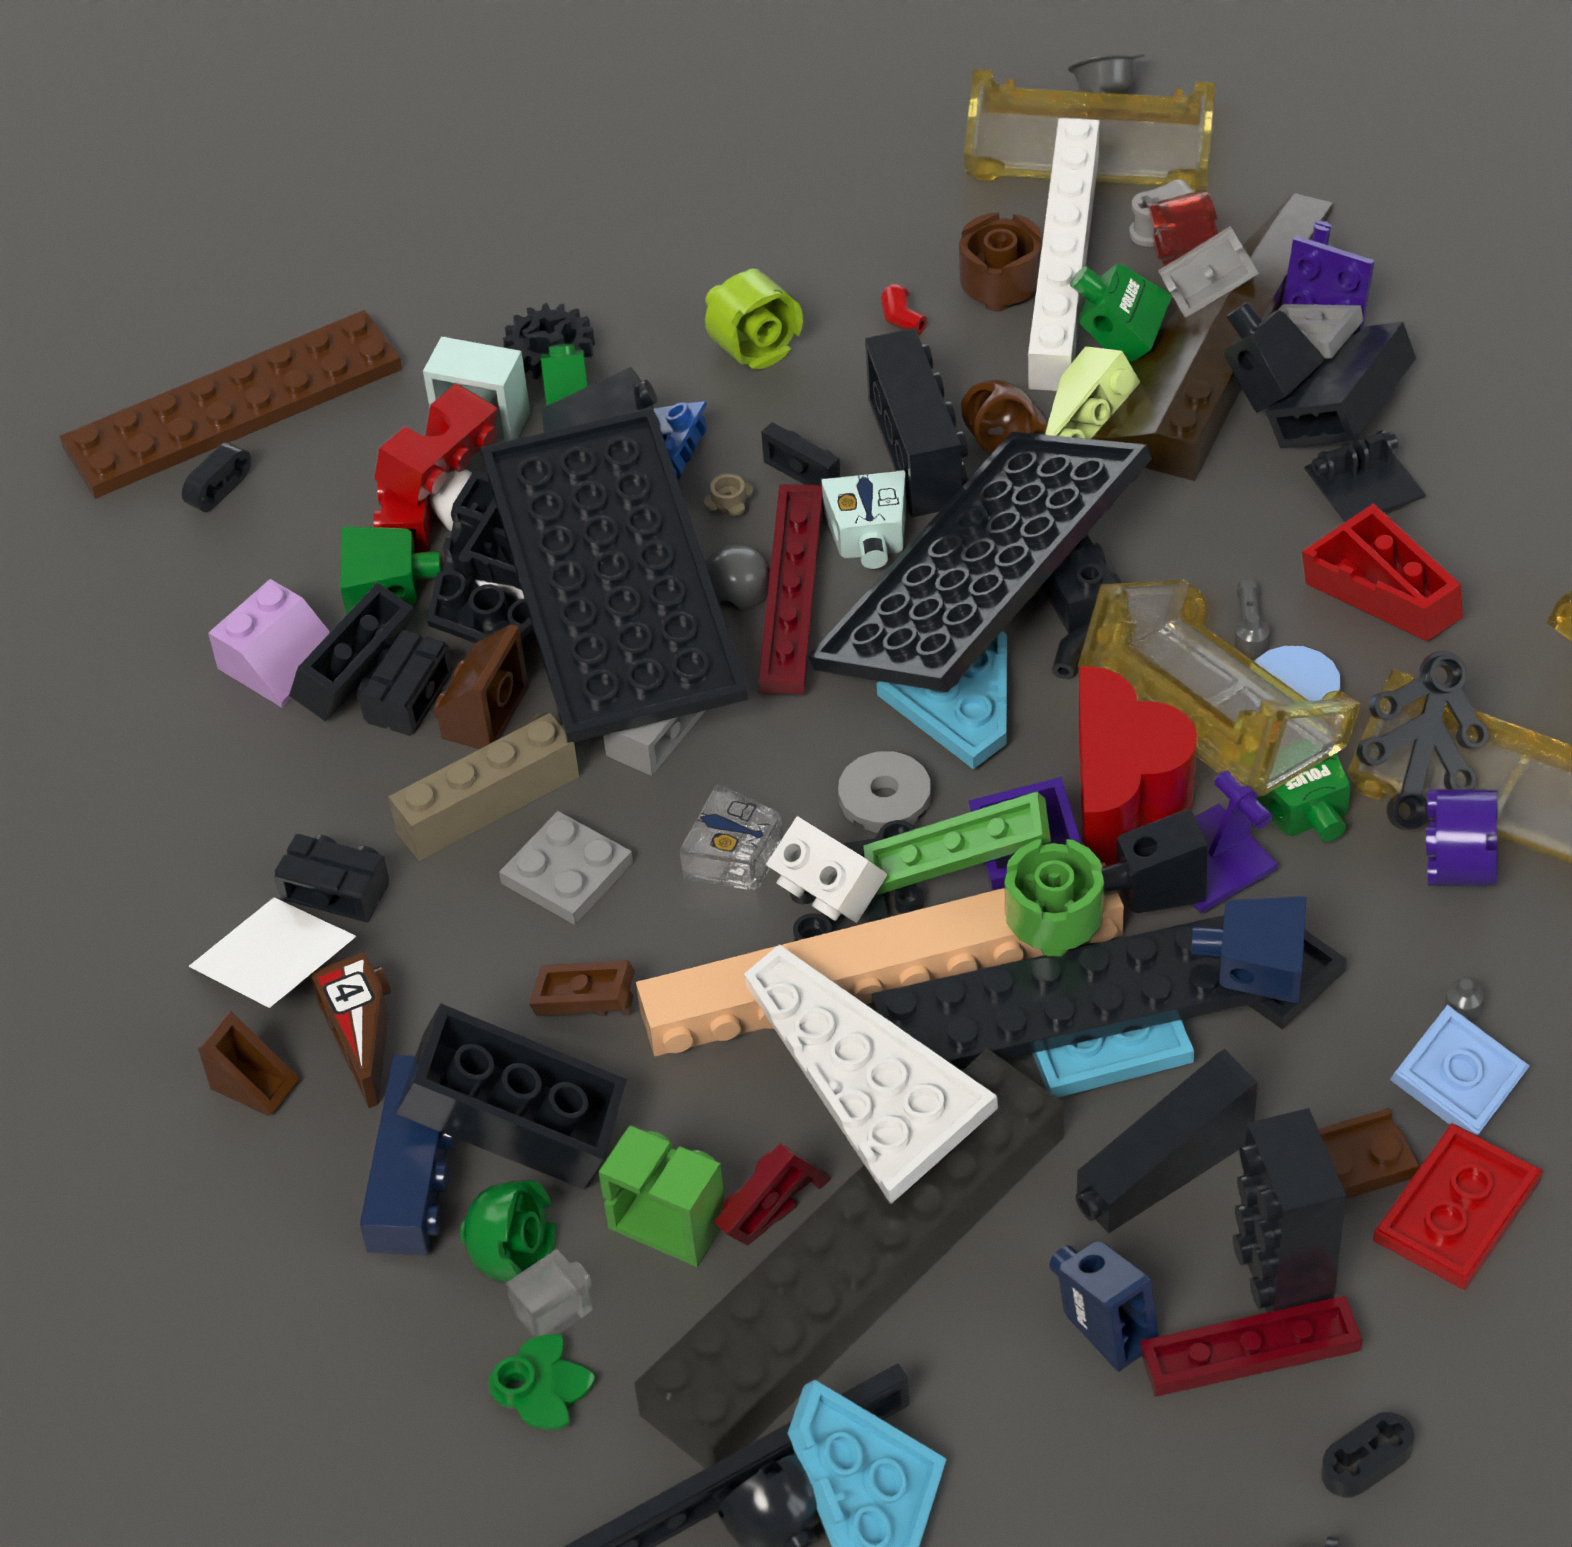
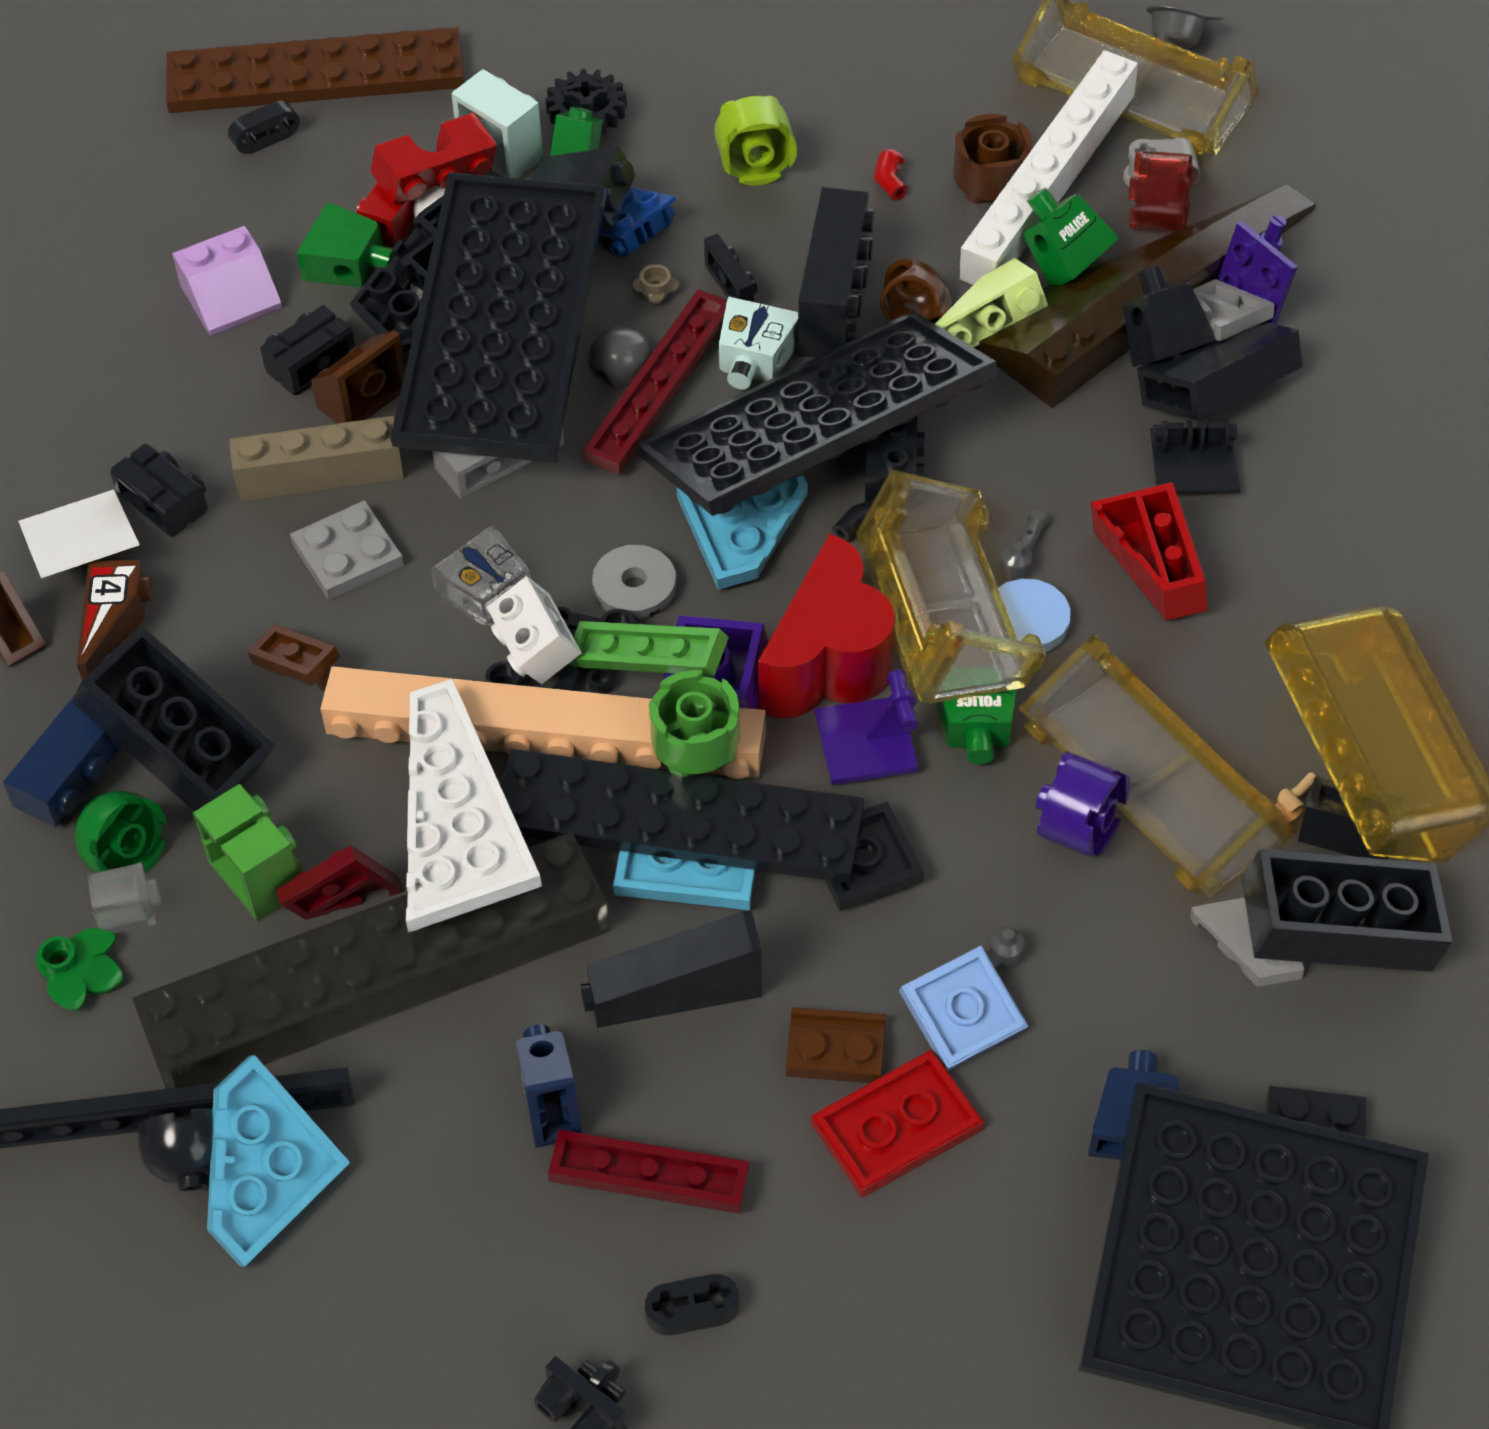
camera: 20 degrees right, 5 degrees up
(349, 651) = (274, 306): black brick -> none
(1160, 864) = (801, 730): black torso -> none
(1208, 272) = (1158, 228): light grey hinge -> none
(1258, 946) = (839, 832): dark blue torso -> none
(1288, 1212) = (714, 1071): black brick -> none
(1427, 733) = (1100, 698): black plant -> none

